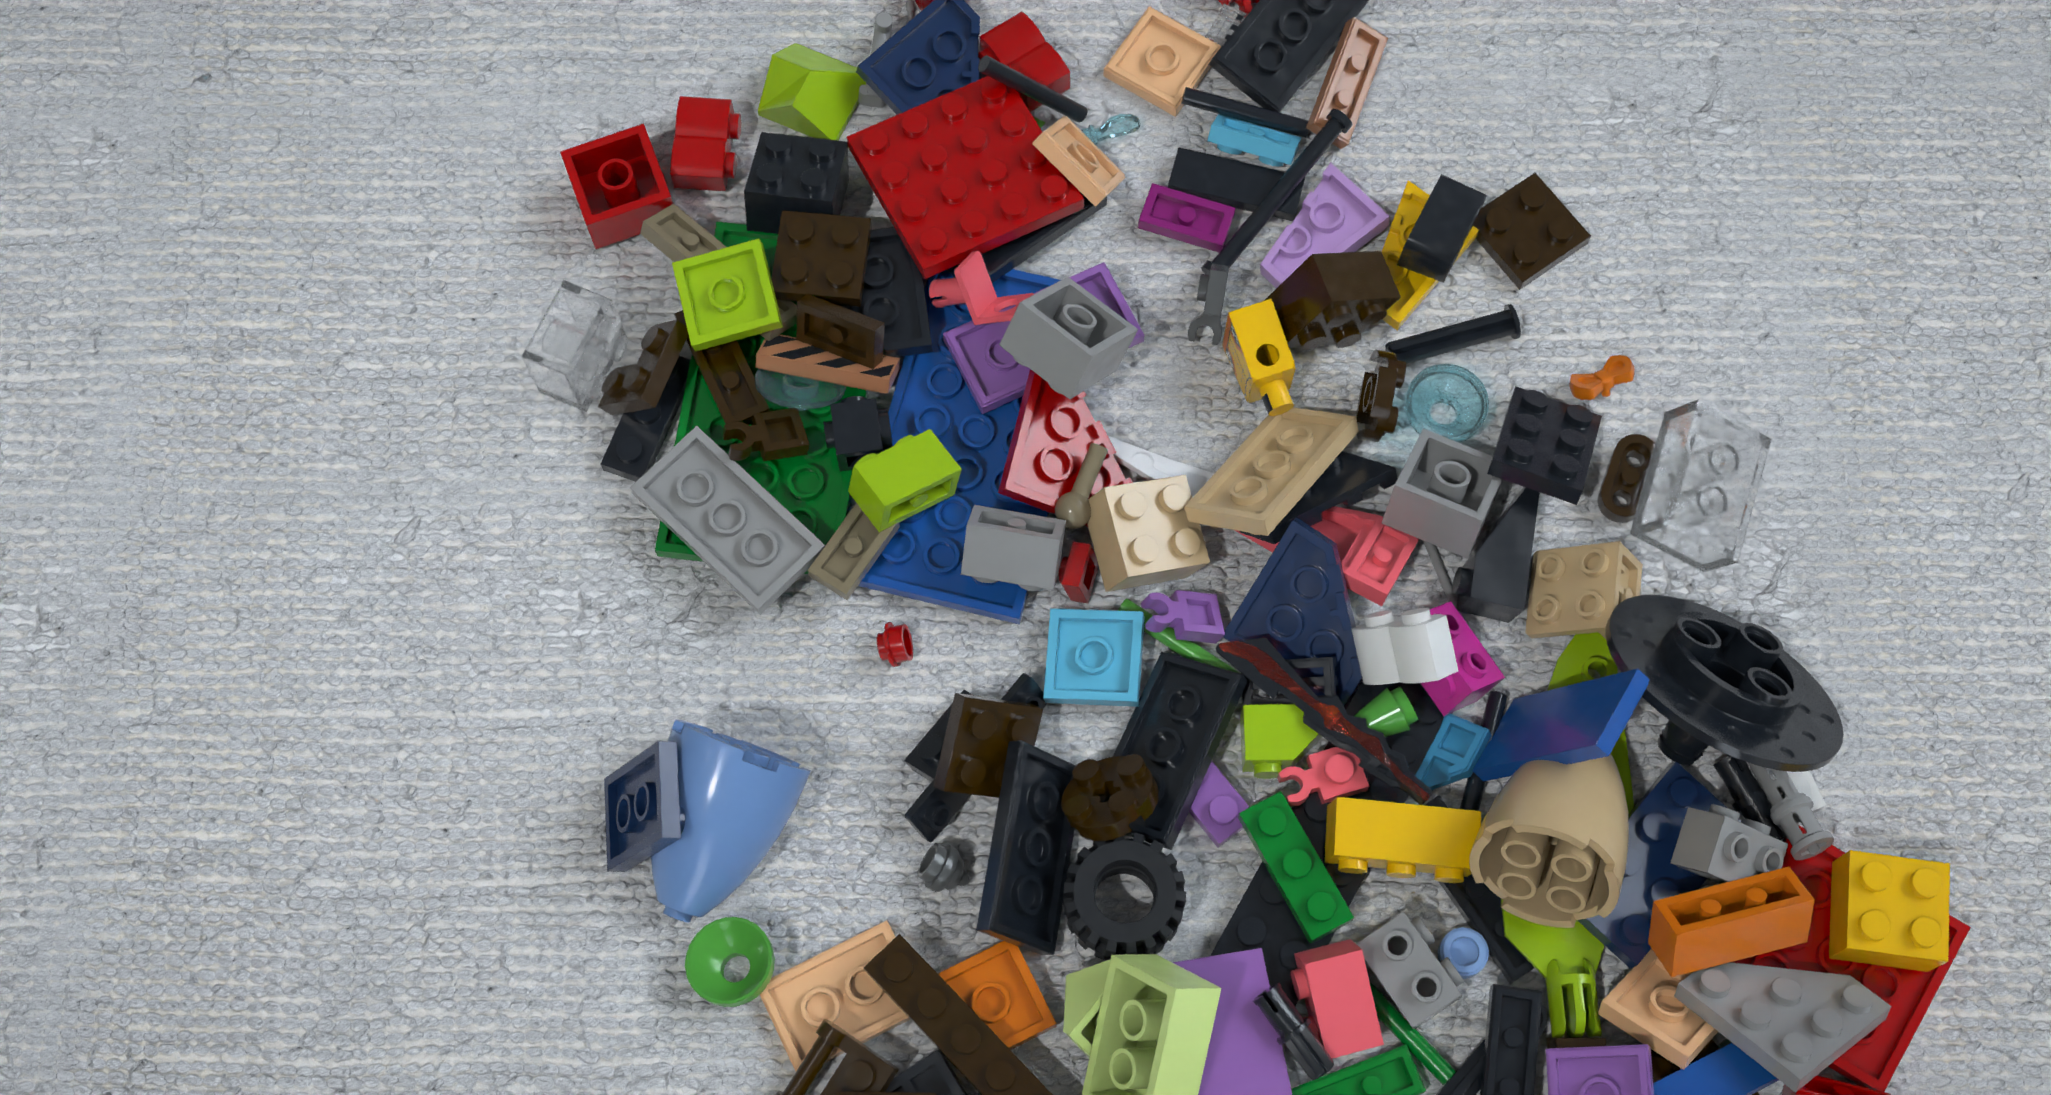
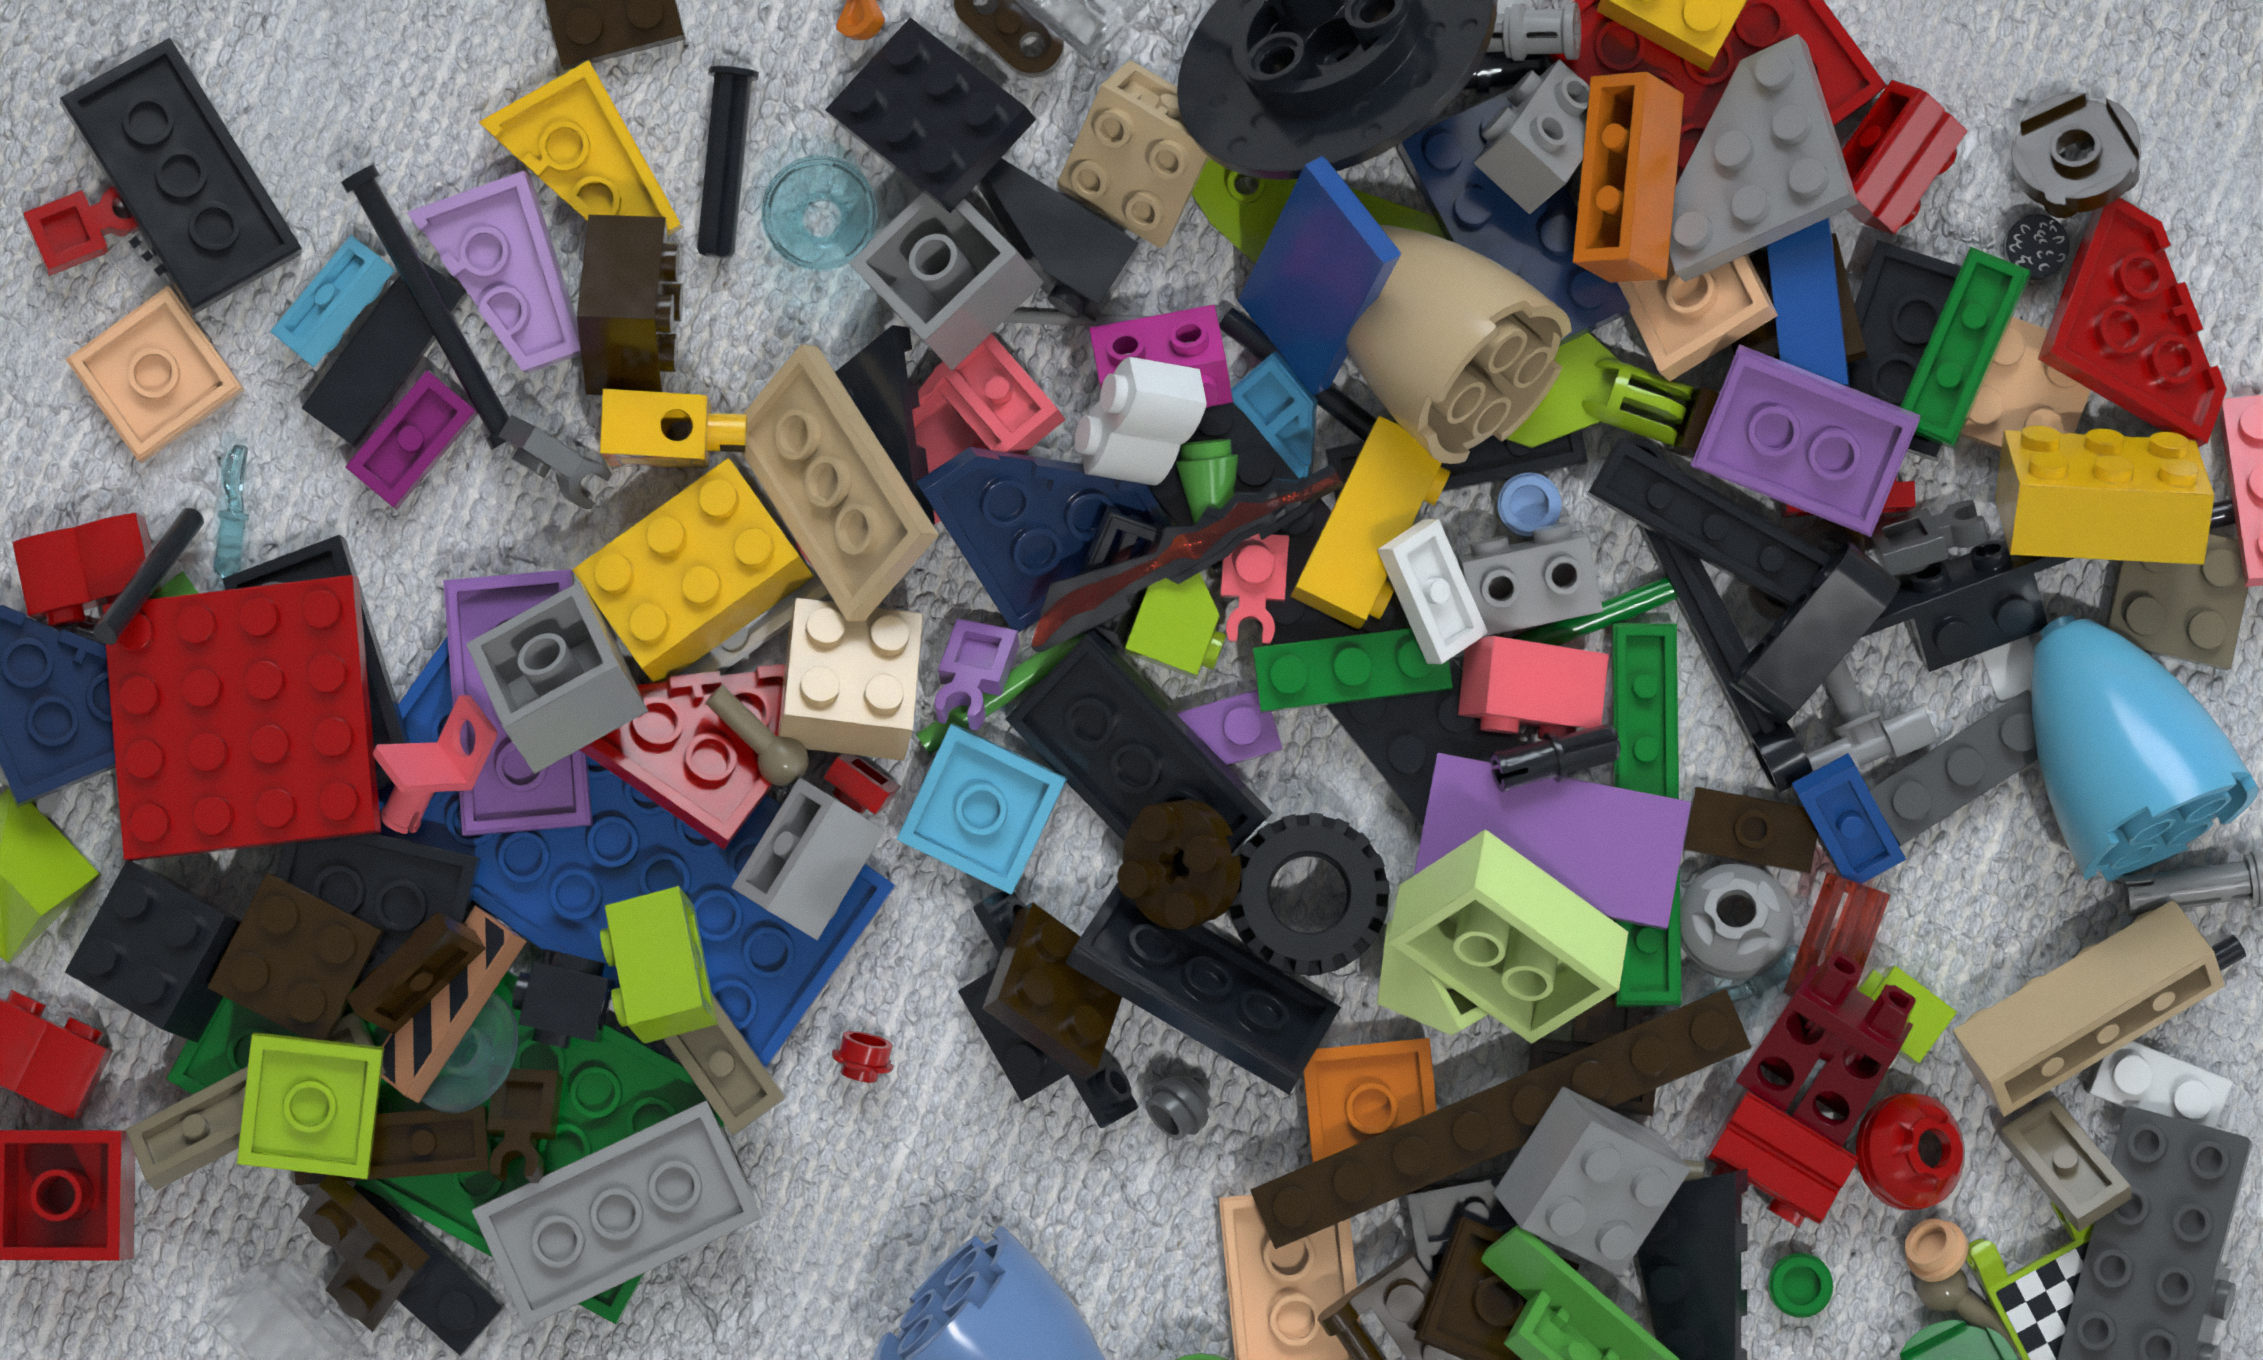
camera: 60 degrees left, 15 degrees up
(1079, 160) = (283, 555): light nougat tile -> none
(1174, 411) = (693, 573): none -> yellow brick
(1245, 112) = (284, 294): black bar -> none
(1348, 77) = (289, 133): nougat tile -> none
(1374, 894) = (1432, 591): none -> white plate
(1377, 396) = (778, 302): dark brown plate -> none
(1441, 229) = (578, 113): black piece -> none

